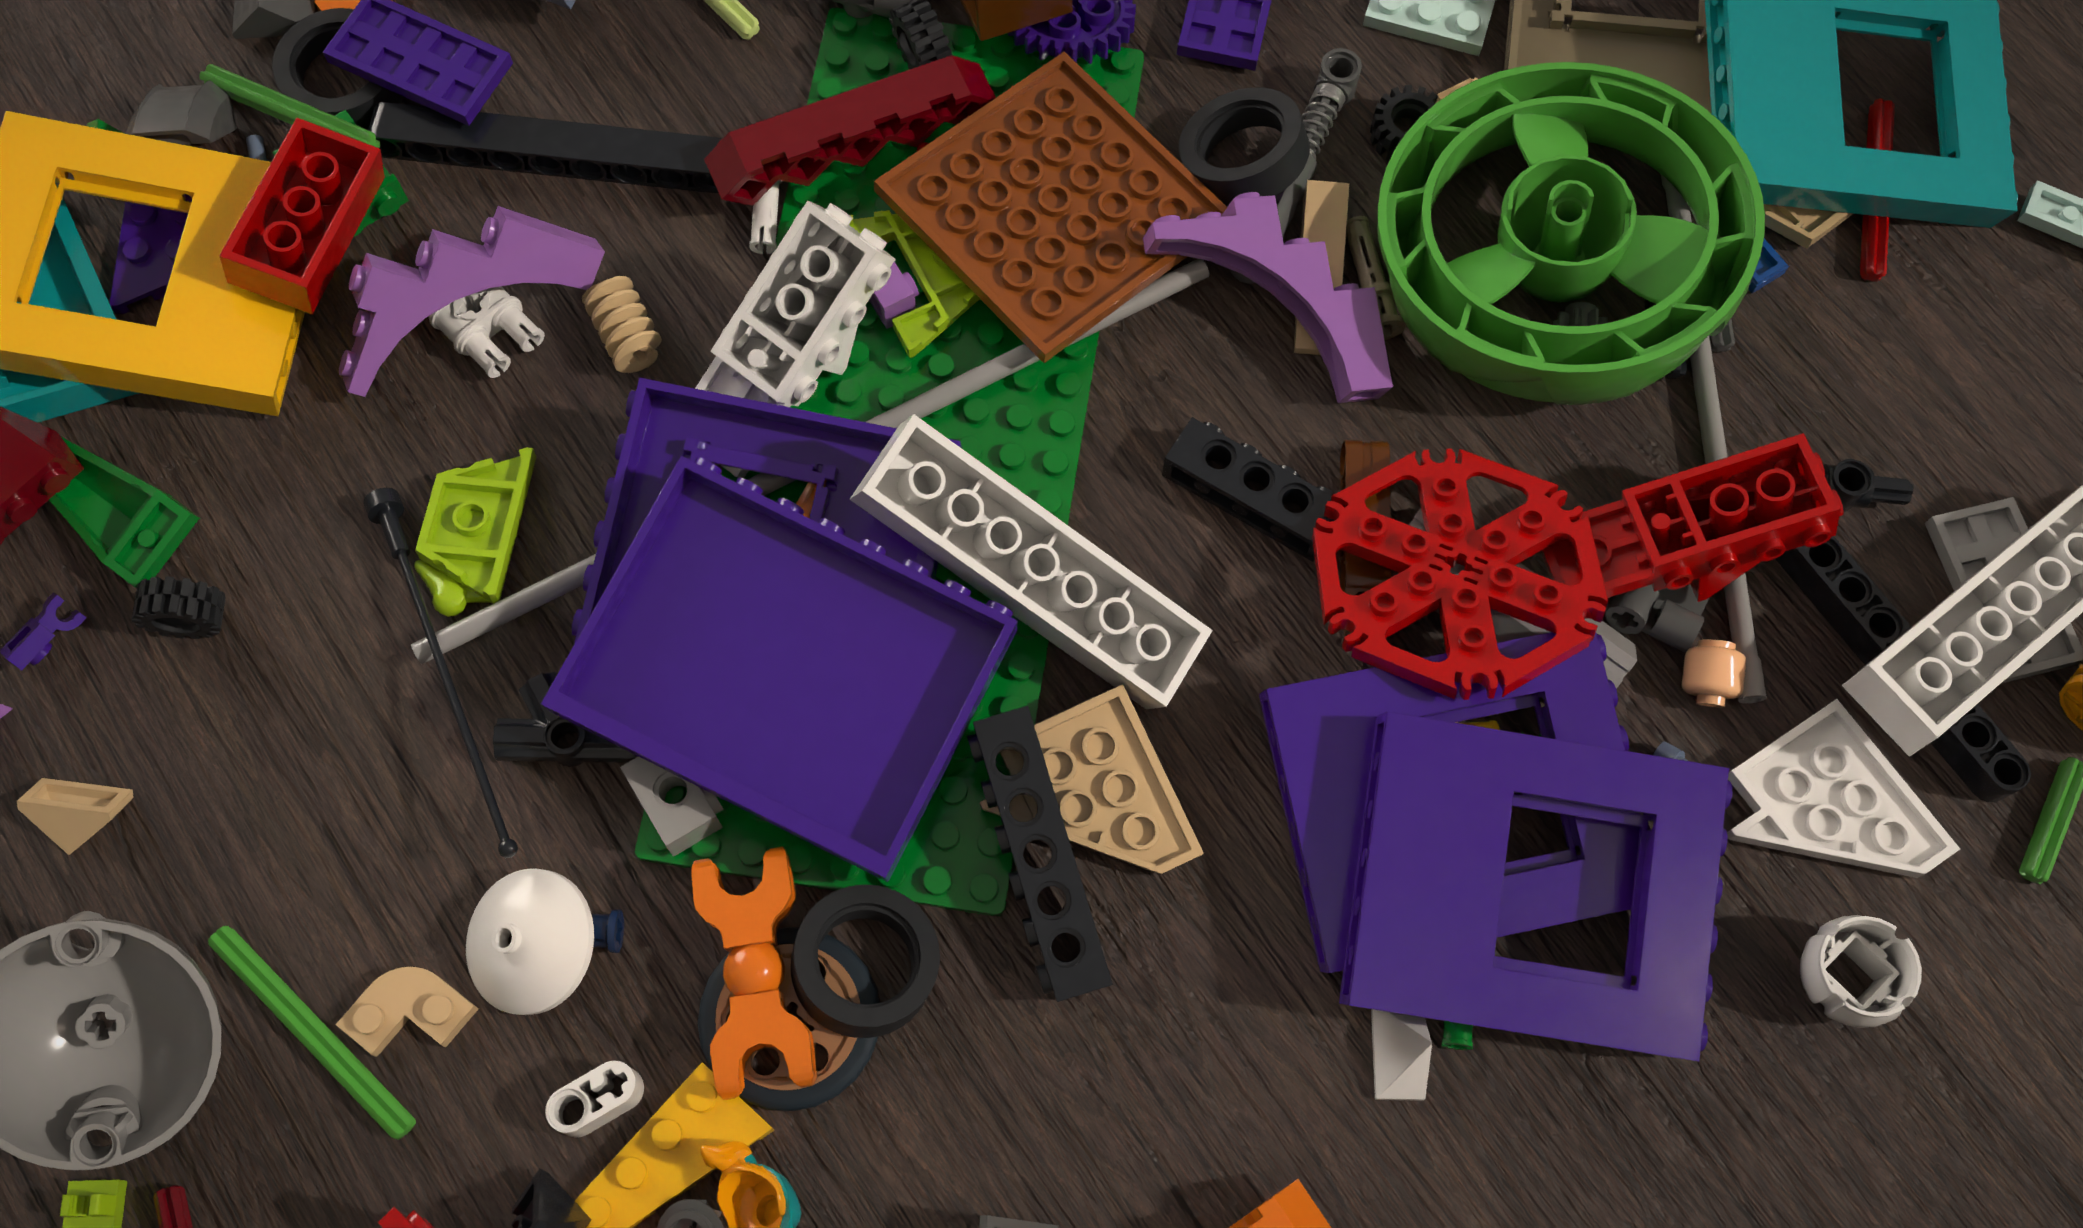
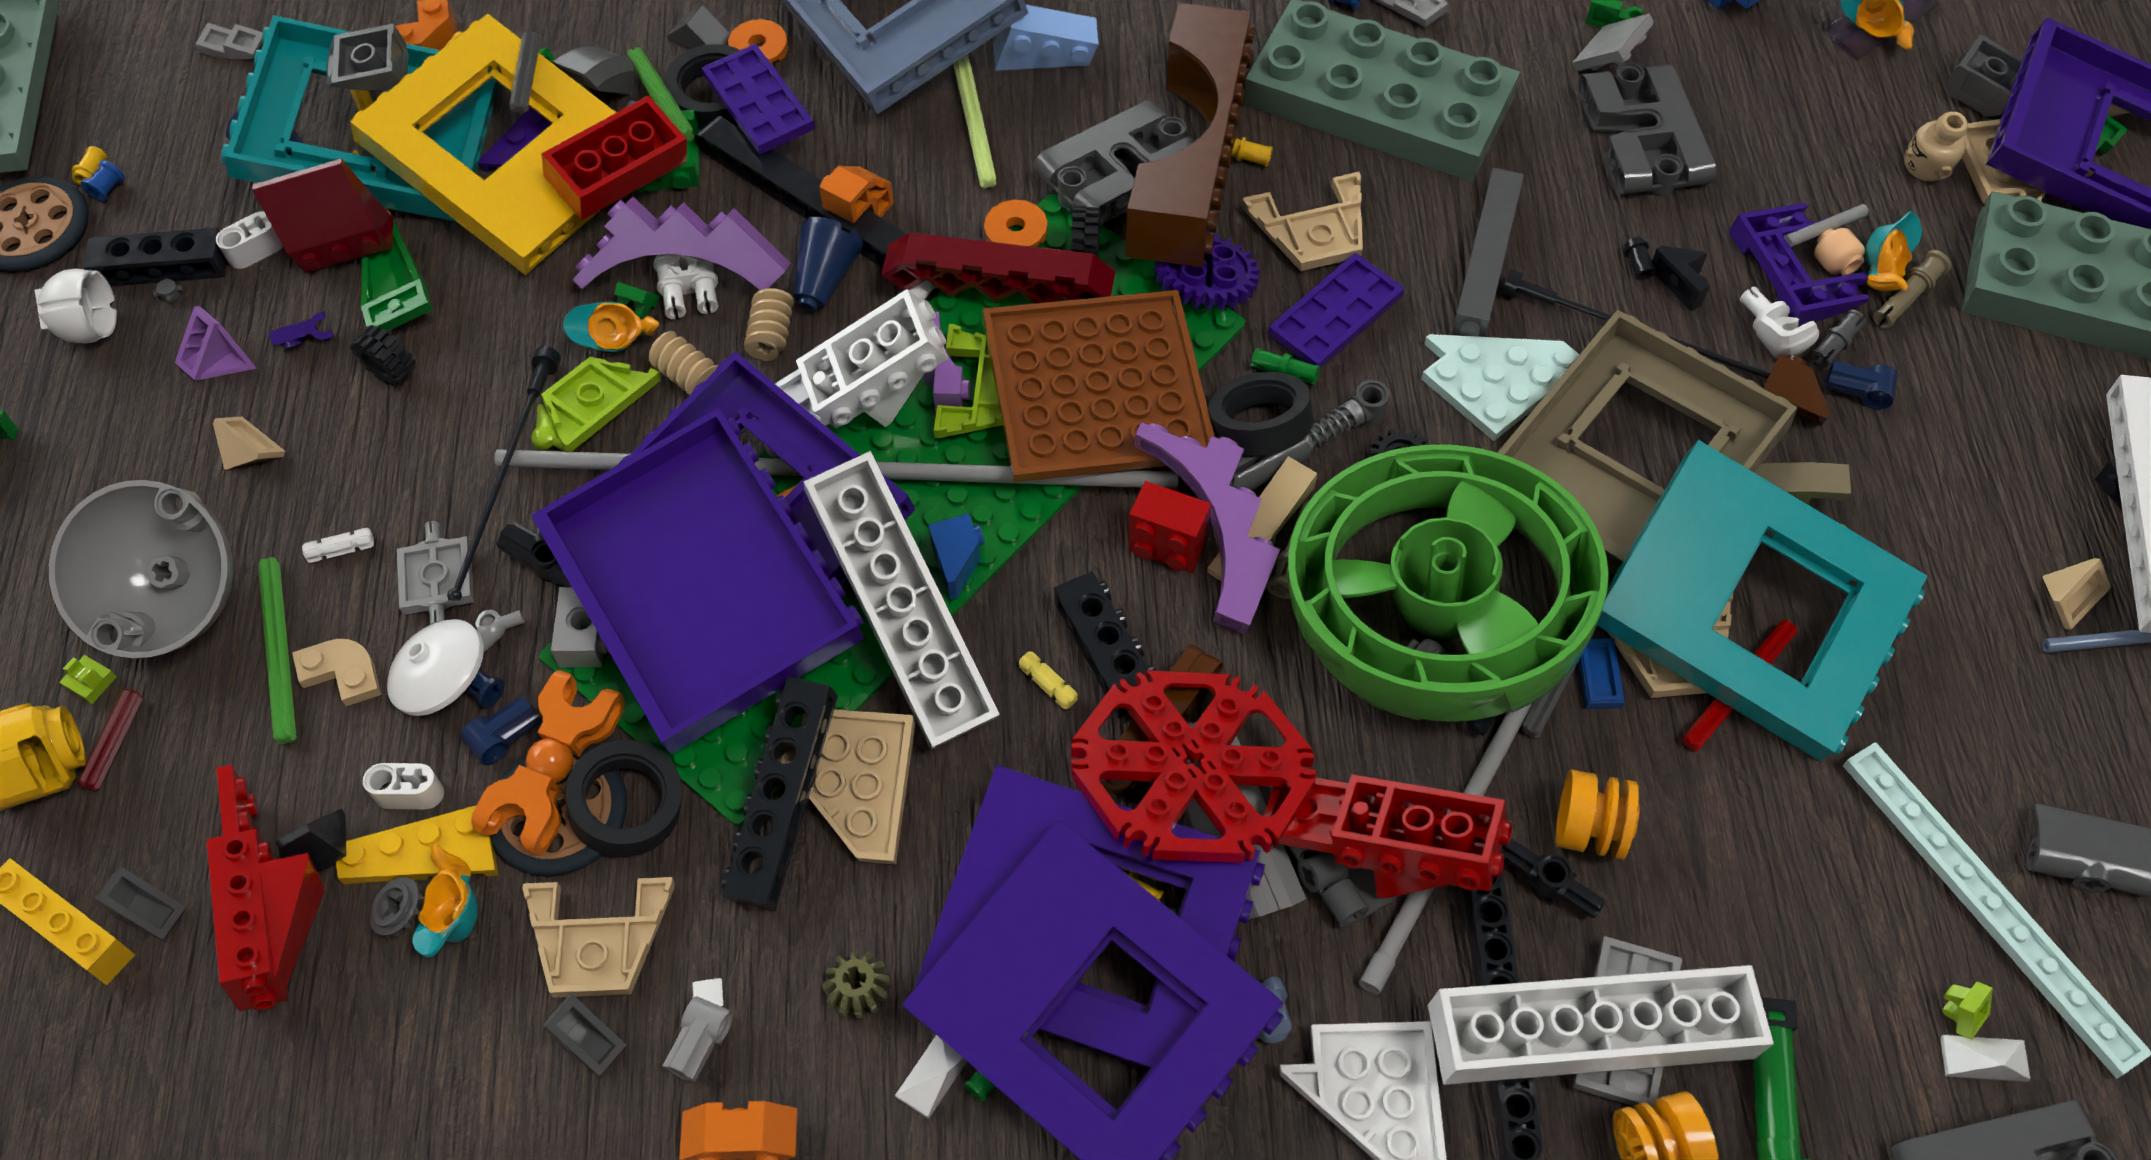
camera: 35 degrees right, 10 degrees down
(110, 163) = (524, 72): none -> dark grey axle
(291, 865) = (338, 545): none -> white axle
(428, 374) = (634, 296): none -> green tile
(435, 426) = (606, 326): none -> light orange hair
(440, 834) = (430, 571): none -> light grey plate
(558, 853) = (492, 625): none -> light grey animal
(560, 427) = (680, 361): none -> tan piece
(617, 117) = (853, 190): none -> orange brick
(635, 217) = (823, 260): none -> dark blue cone
(656, 980) = (491, 736): none -> dark blue piece
(822, 48) = (1016, 213): none -> orange tile
(954, 1150) = (595, 953): none -> tan wing
(1031, 467) = (956, 550): none -> blue slope
(1103, 1115) = (709, 990): none -> white sticker
(1133, 1159) = (701, 1028): none -> light grey piece
(1218, 562) = (1048, 680): none -> light yellow axle
(1221, 81) = (1285, 364): none -> green pin
(1238, 324) = (1169, 527): none -> red brick
(1260, 1025) = (856, 969): none -> olive gear
(1713, 672) = (1350, 950): light nougat head -> none
(1854, 397) = (1604, 815): none -> light orange wheel

